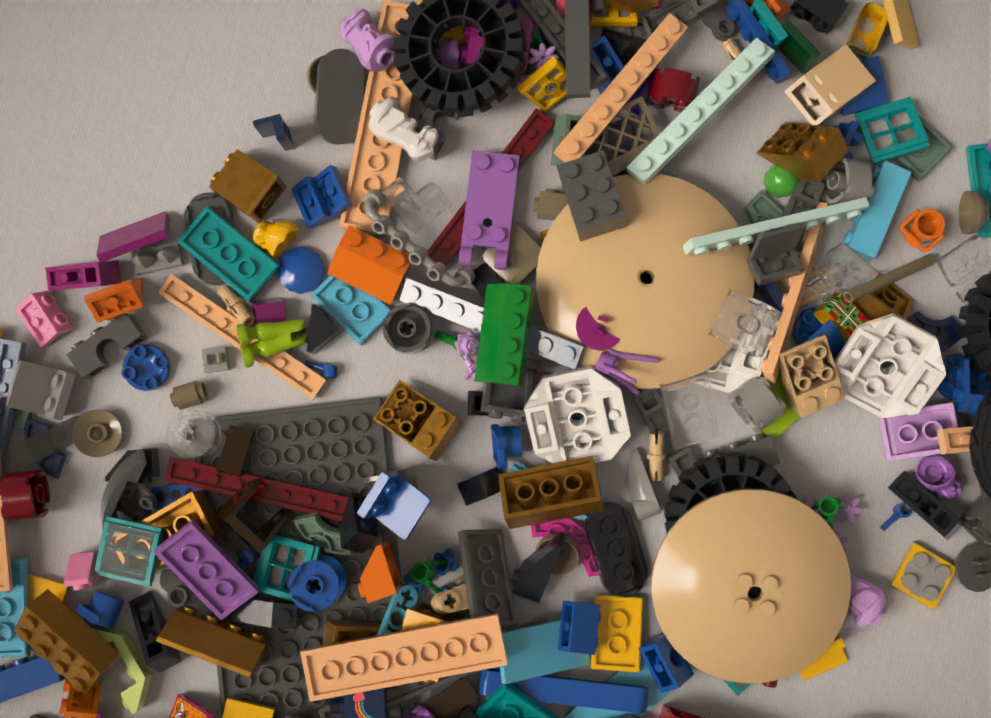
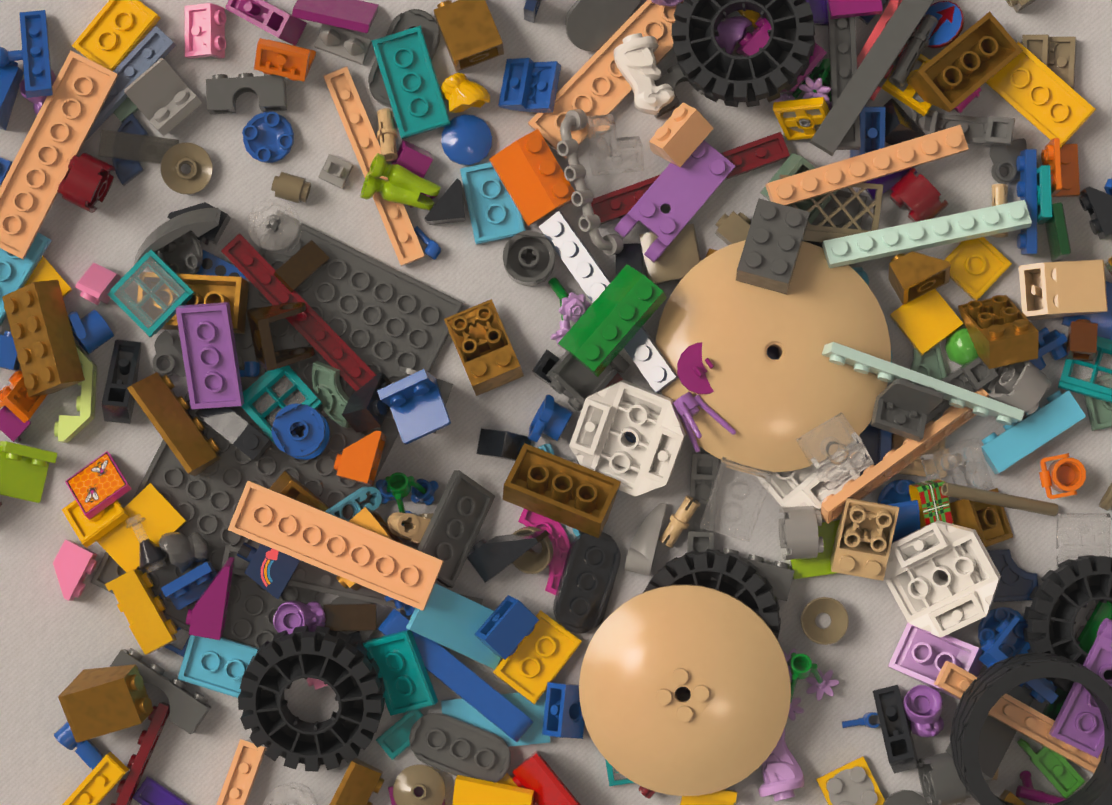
camera: 30 degrees right, 0 degrees up
(462, 158) = (680, 135): none -> light nougat slope
(712, 147) = (917, 274): none -> pearl gold slope
(740, 178) = (926, 321): none -> yellow tile
(749, 115) = (976, 266): none -> yellow tile
(829, 458) = (838, 617): none -> dark tan piece
(870, 116) = (1082, 340): none -> reddish brown brick

